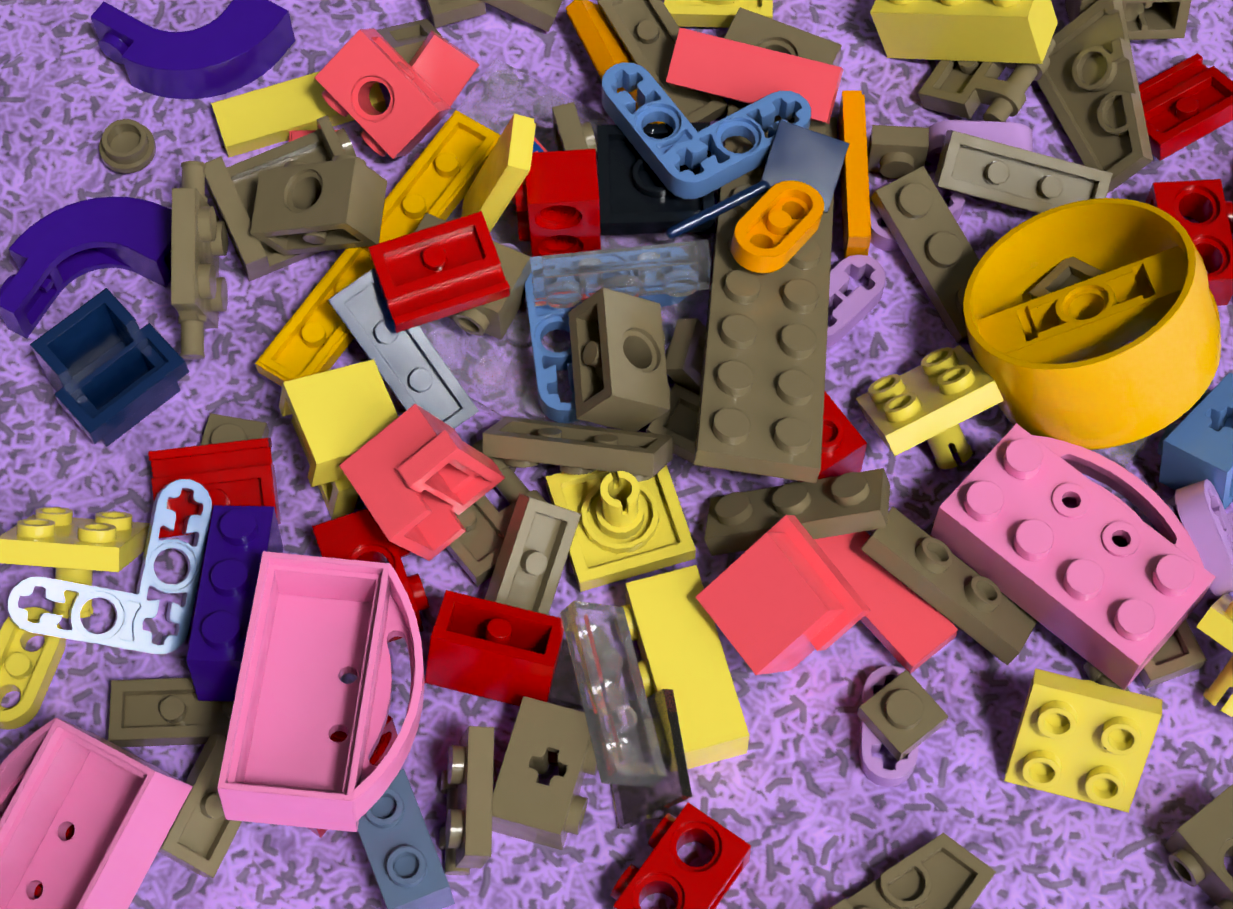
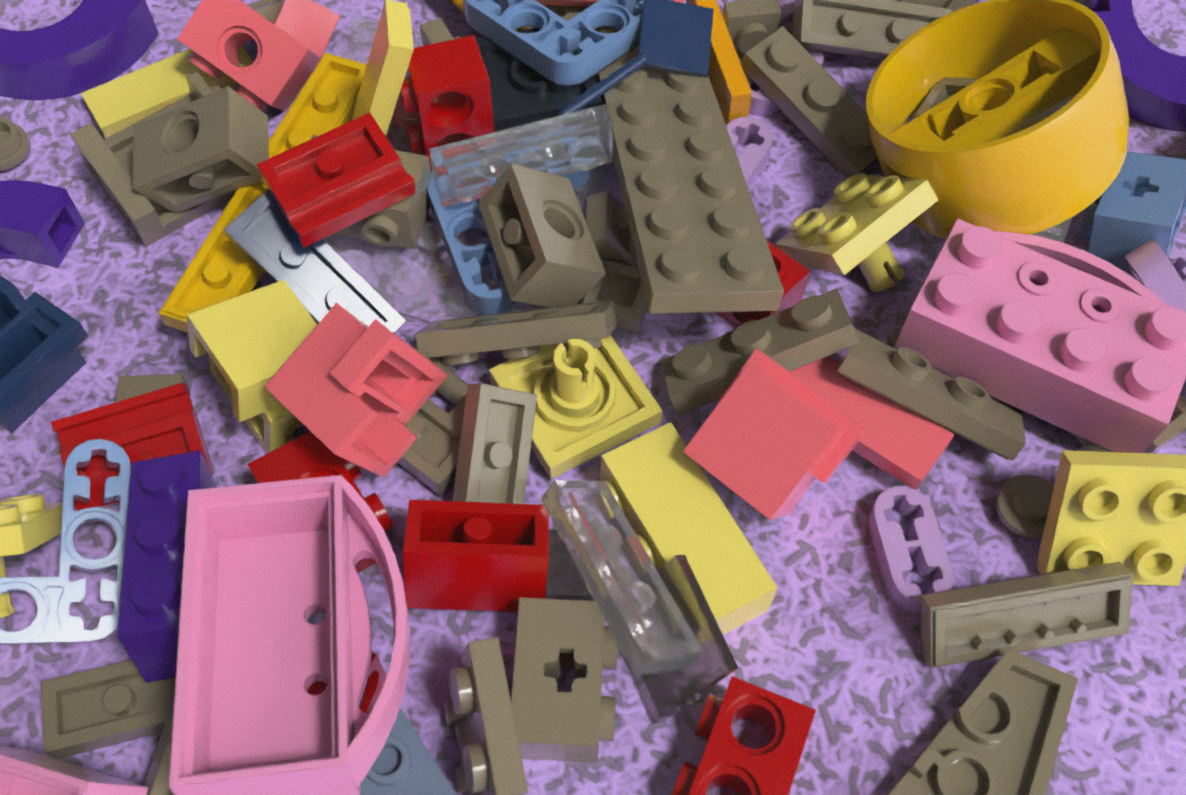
camera: 15 degrees left, 5 degrees down
(195, 251) = (77, 224): dark tan plate -> none
(769, 235) = (667, 86): light orange plate -> none
(902, 715) = (926, 533): dark tan plate -> none
(972, 806) = (1025, 614): none -> dark tan plate
(1004, 707) = (1024, 505): none -> dark tan plate

